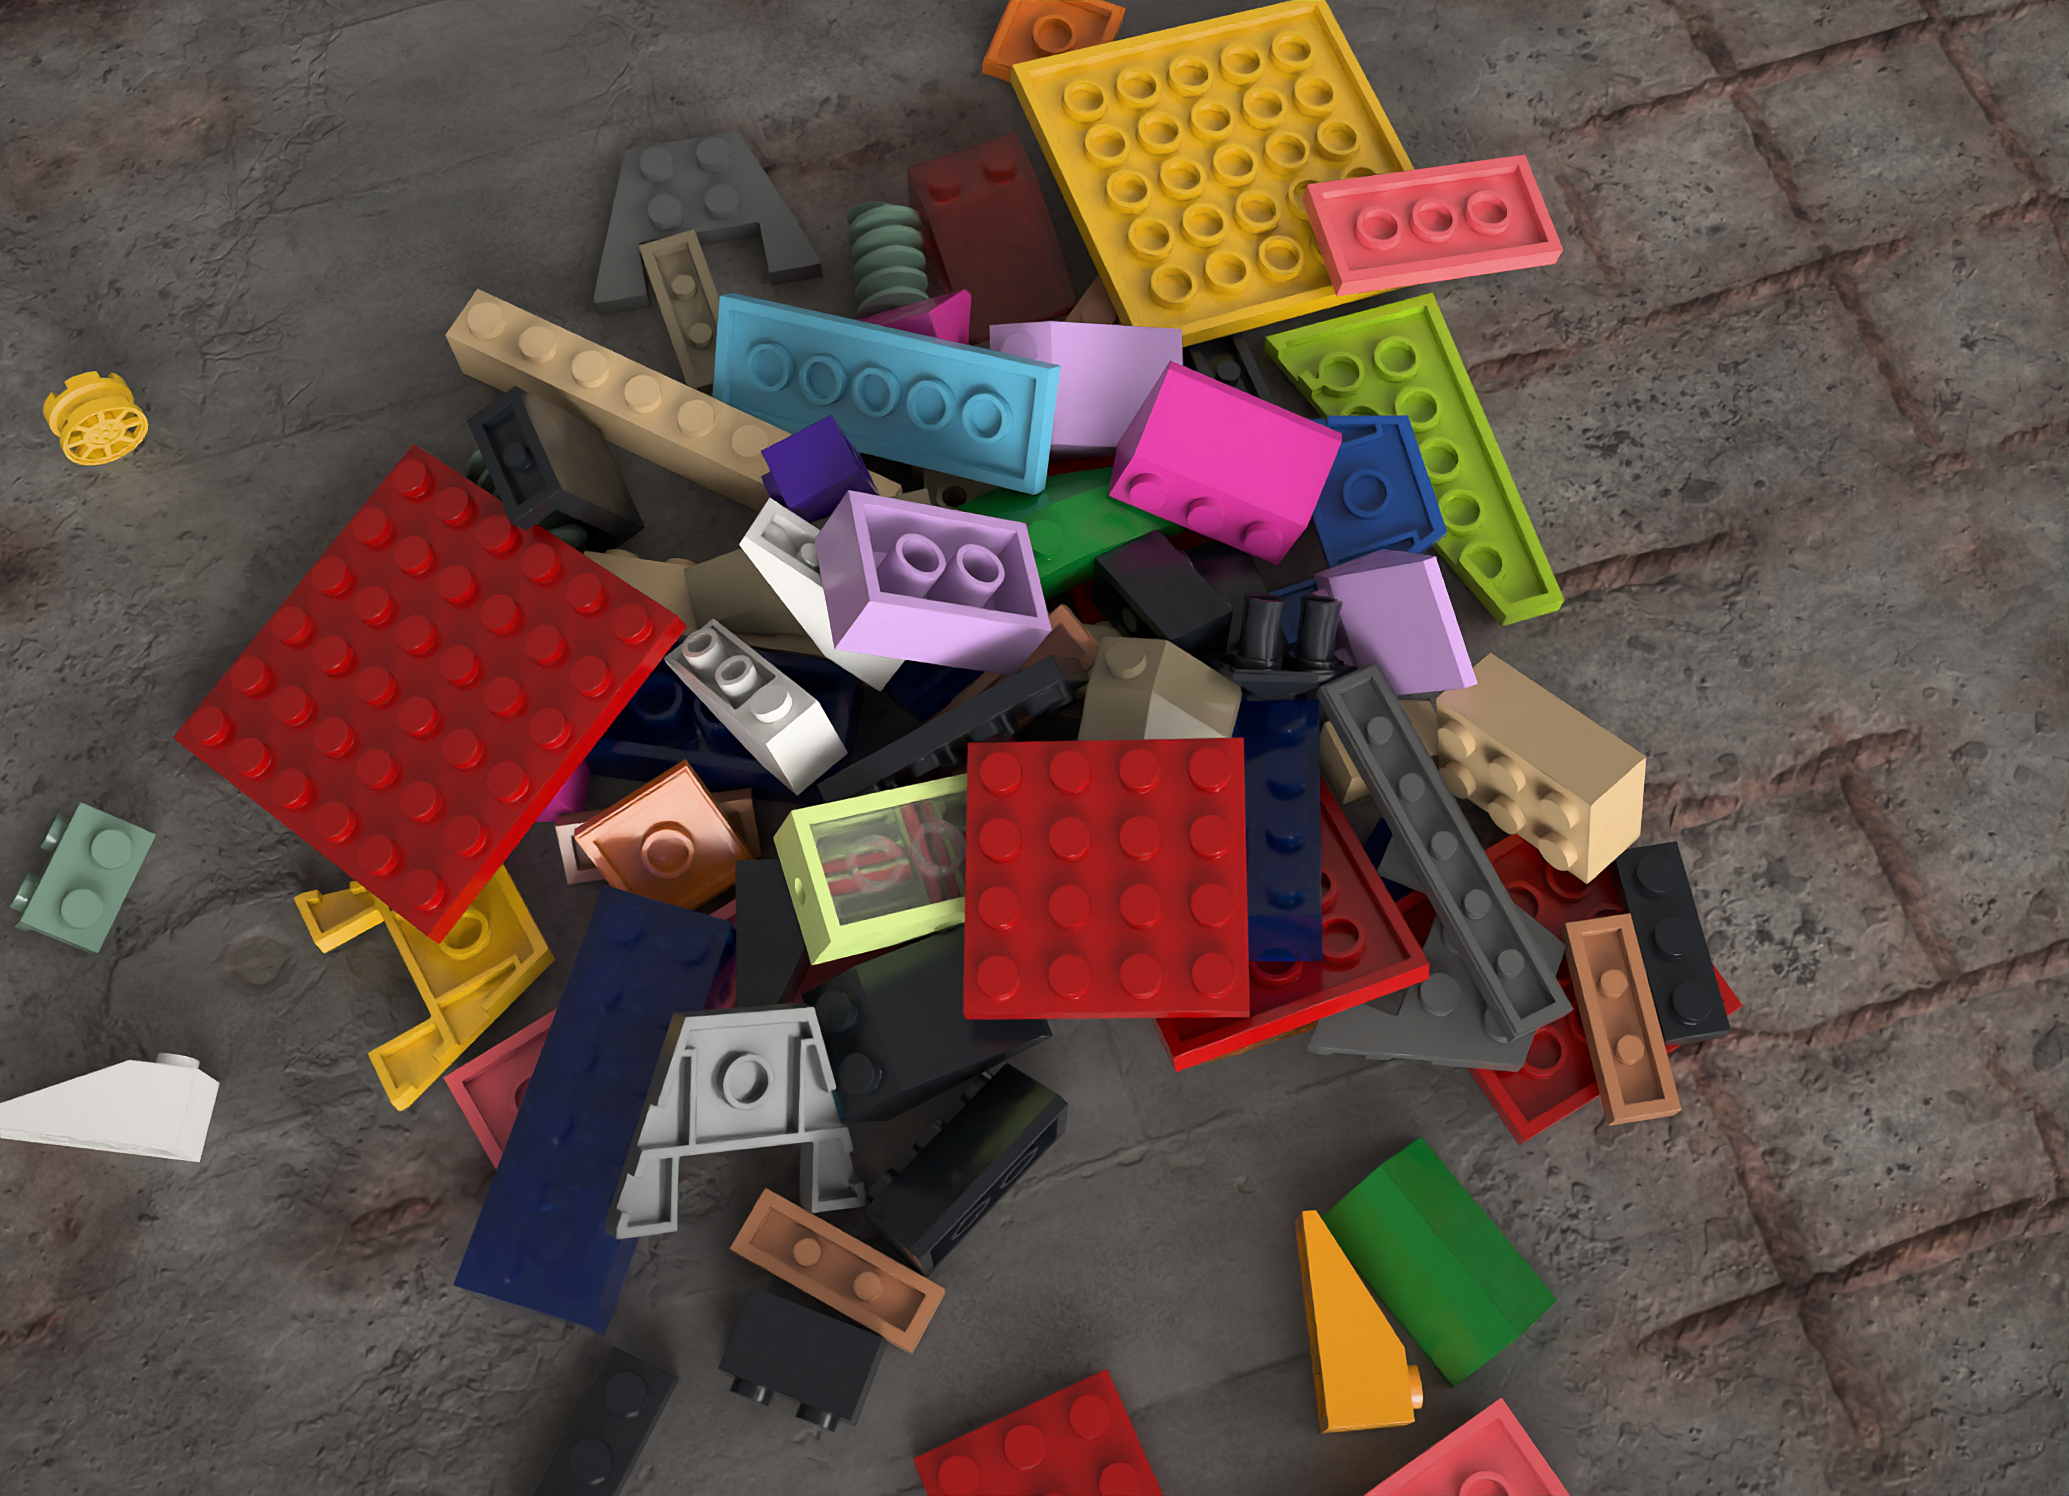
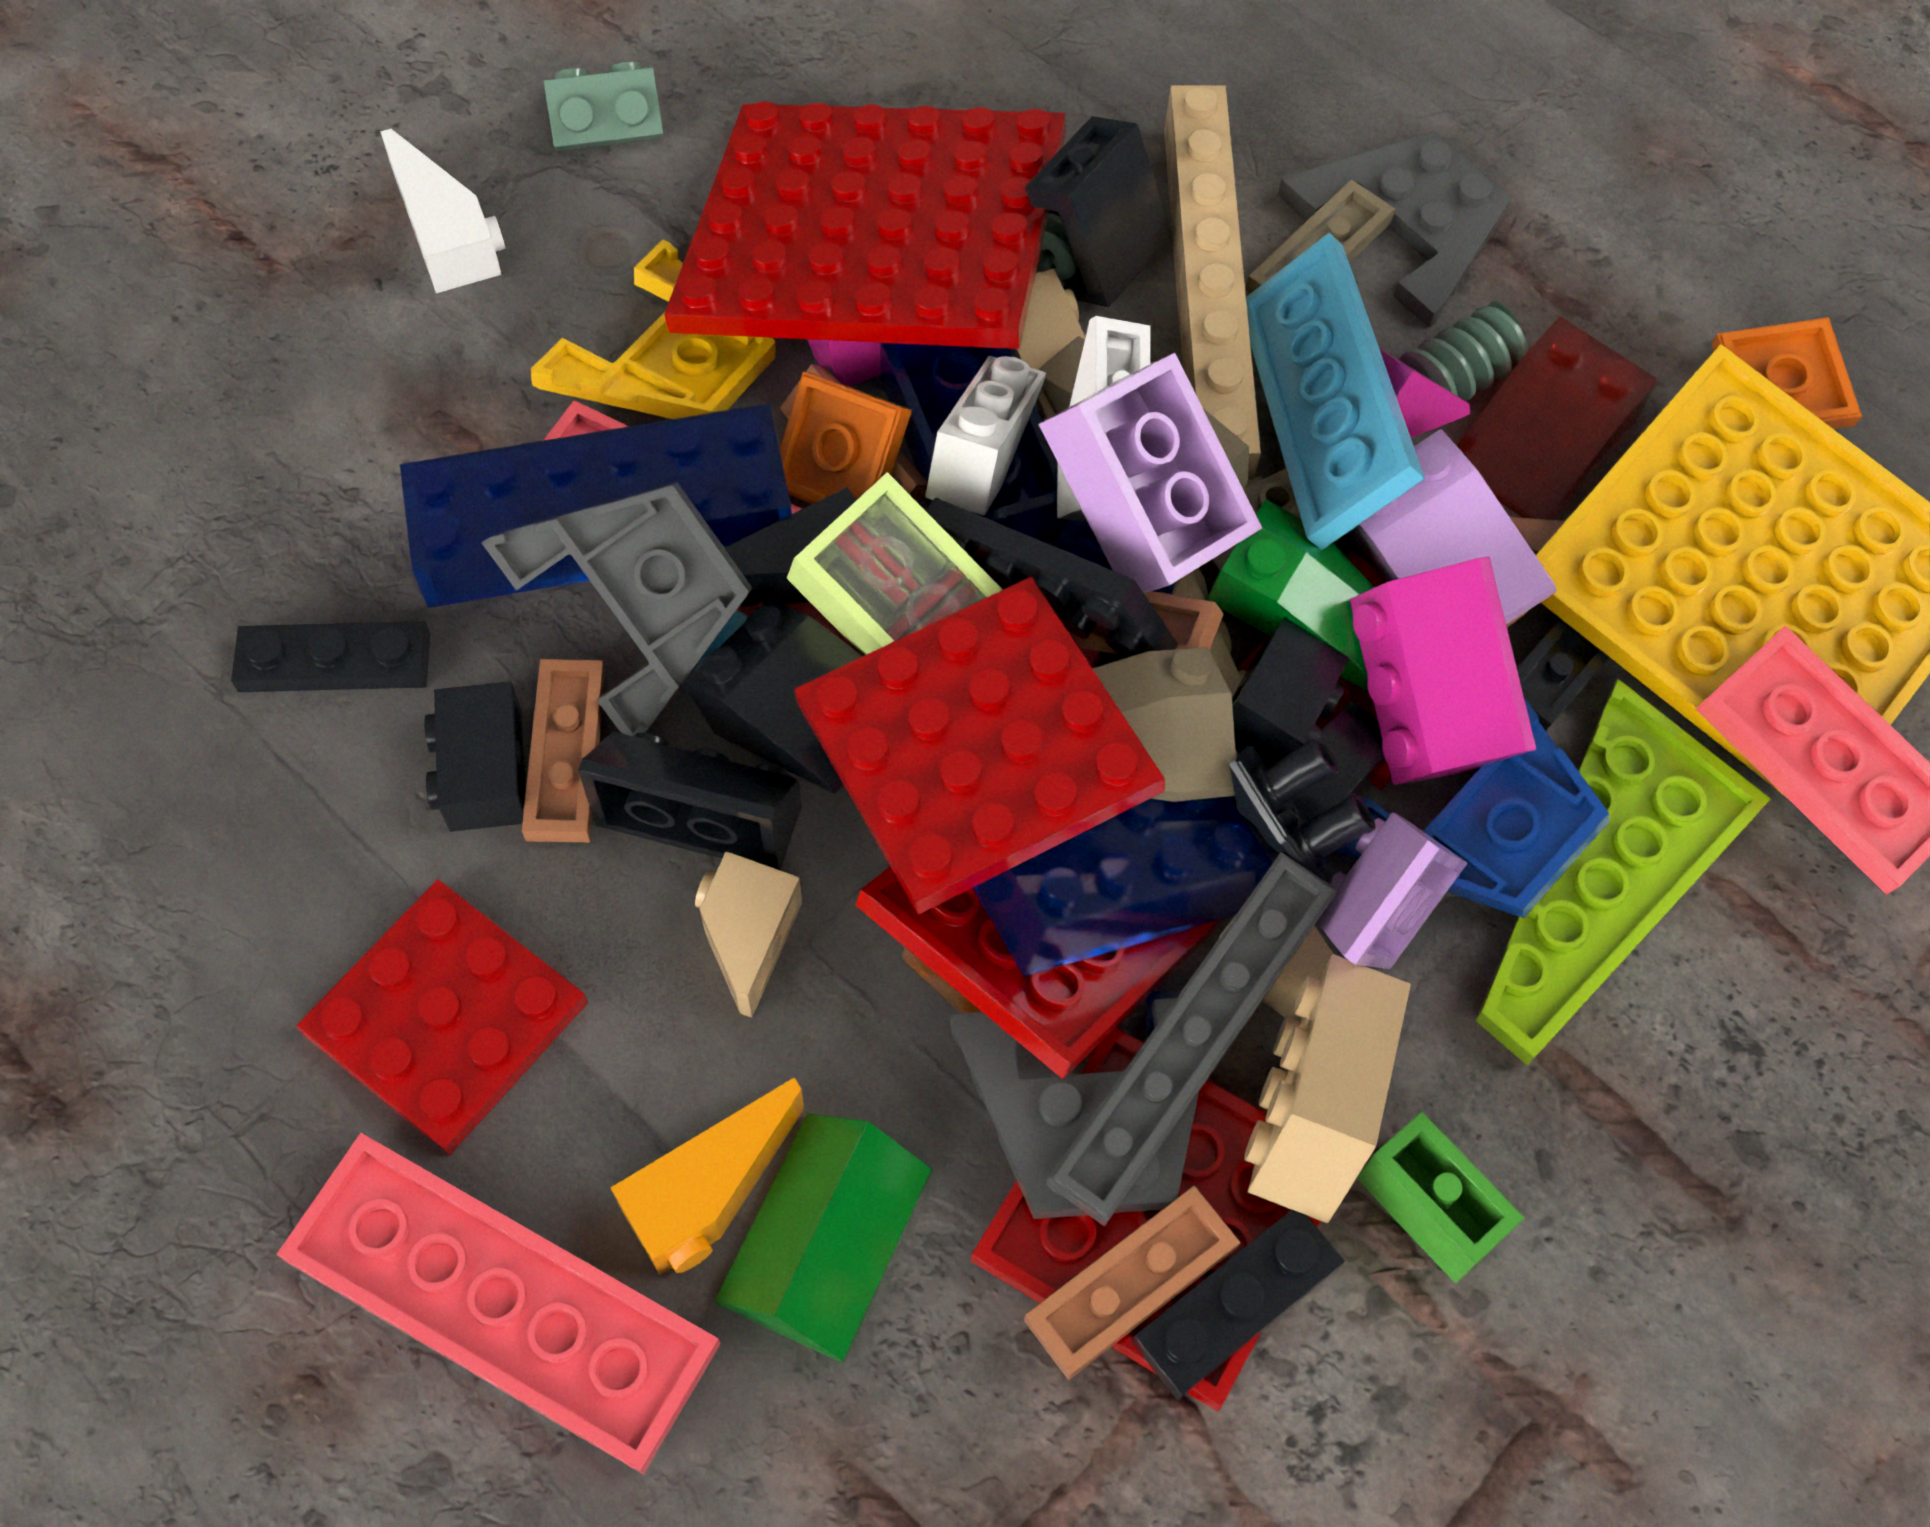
camera: 60 degrees right, 5 degrees down
(815, 470) = (1216, 360): dark purple brick -> none
(1116, 1184) = (747, 921): none -> tan slope
(1675, 731) = (1439, 1197): none -> bright green brick

